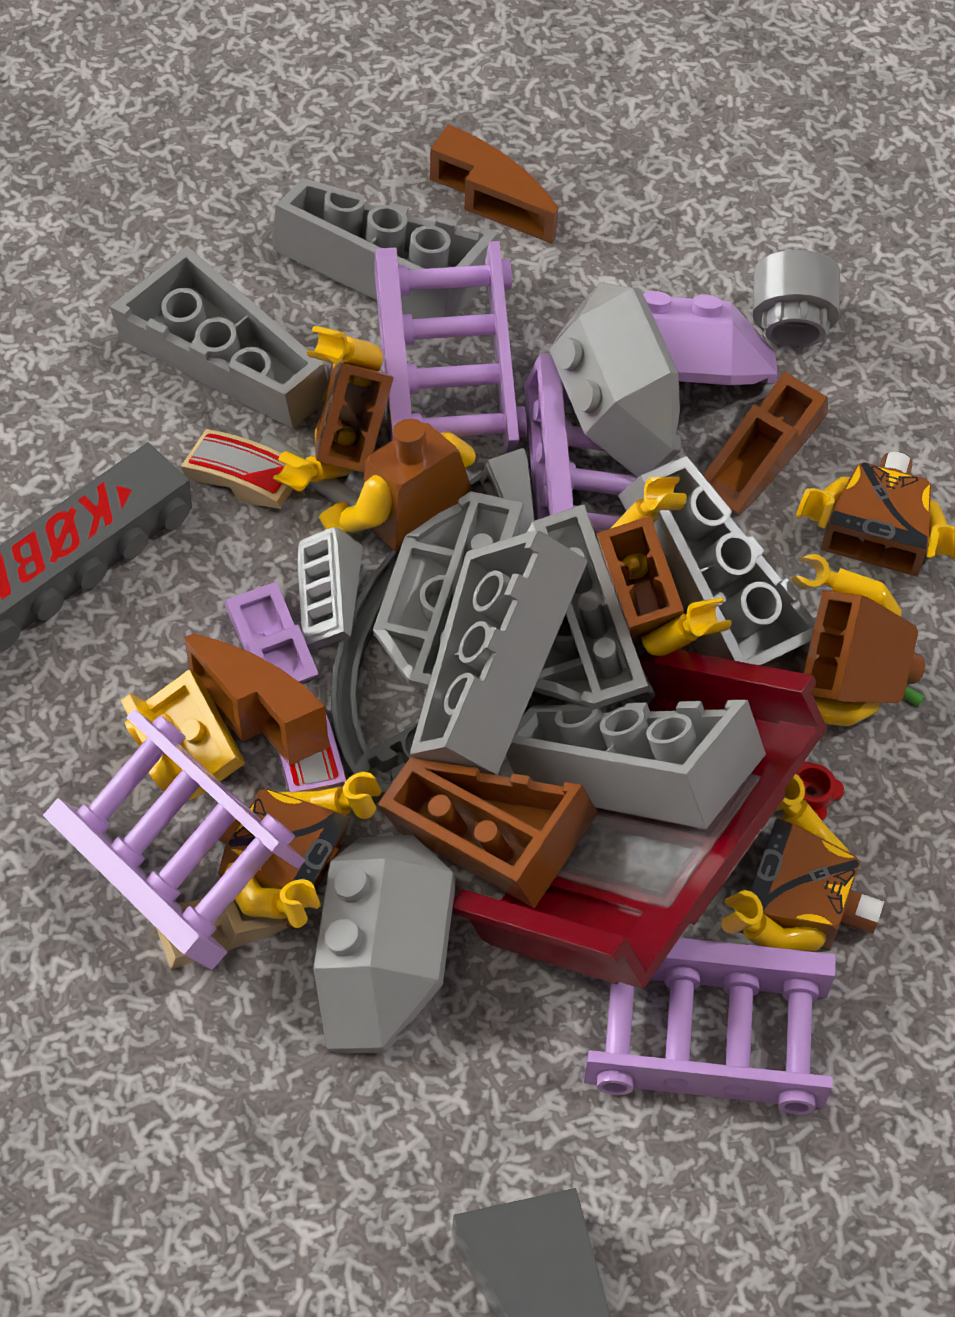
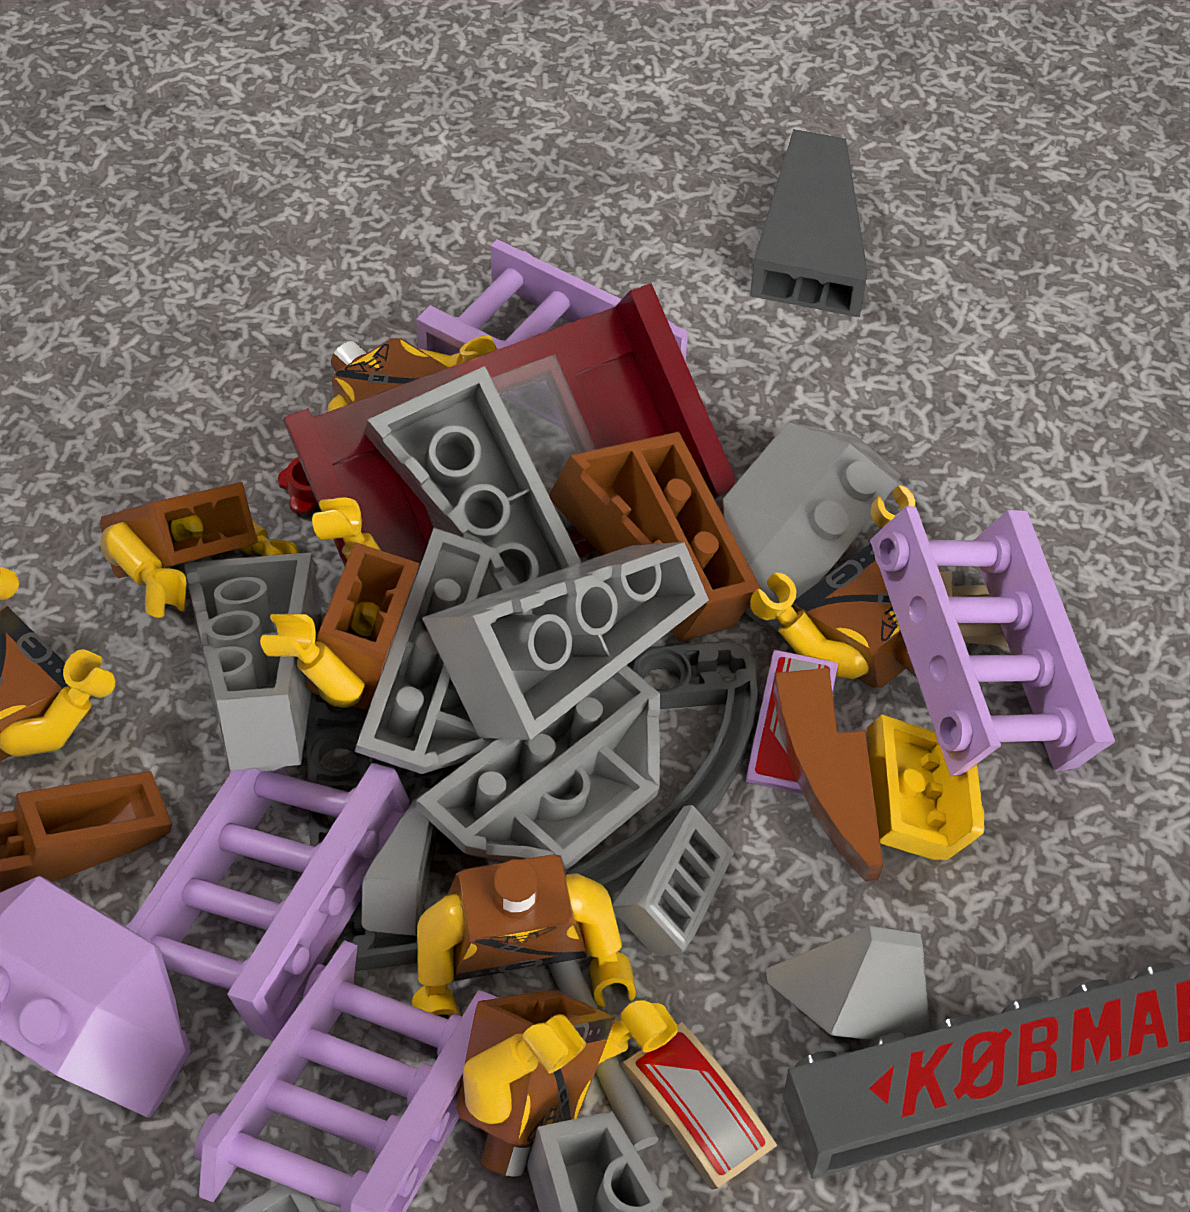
camera: 150 degrees left, 5 degrees down
(176, 553) = (860, 984): none -> light grey slope
(269, 631) = (768, 871): lavender slope -> none
(621, 378) = (176, 929): light grey wedge -> none

